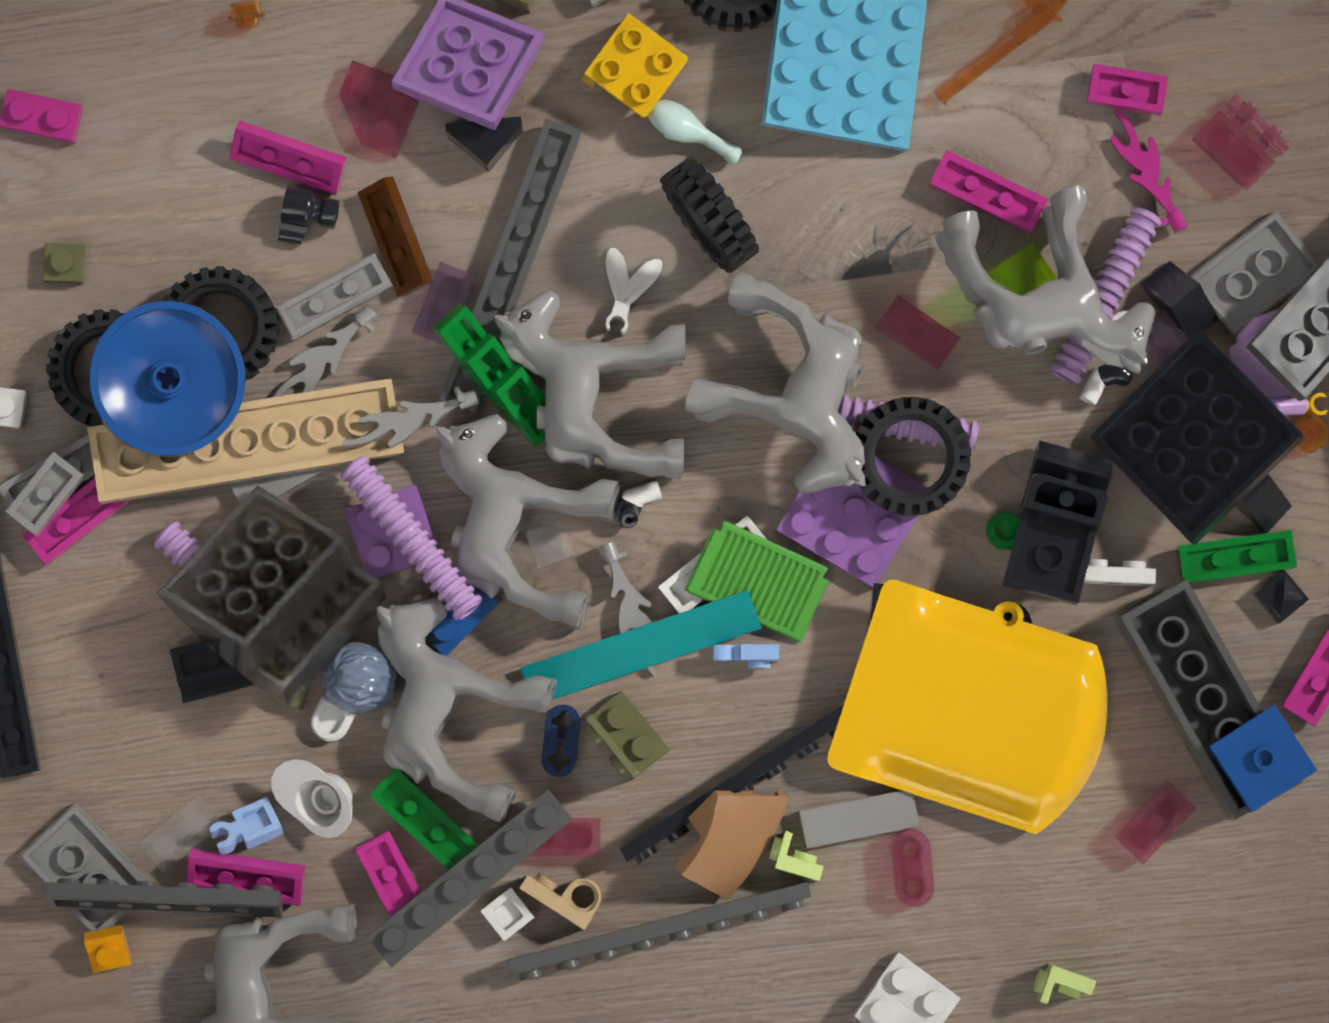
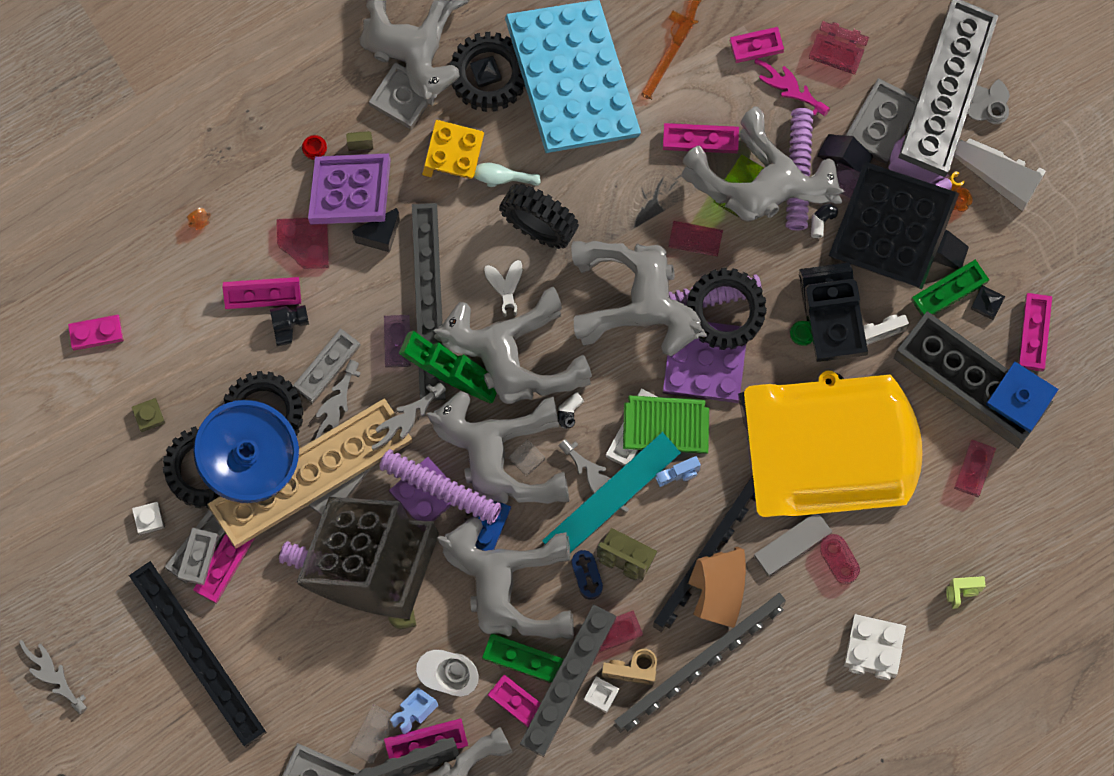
camera: 20 degrees left, 10 degrees down
(204, 673) = (347, 625): black plate -> none
(330, 721) = (437, 623): white tile -> none
(359, 678) = (444, 588): sand blue hair -> none
(395, 236) = (349, 312): reddish brown plate -> none
(800, 865) = (768, 587): yellowish green bracket -> none

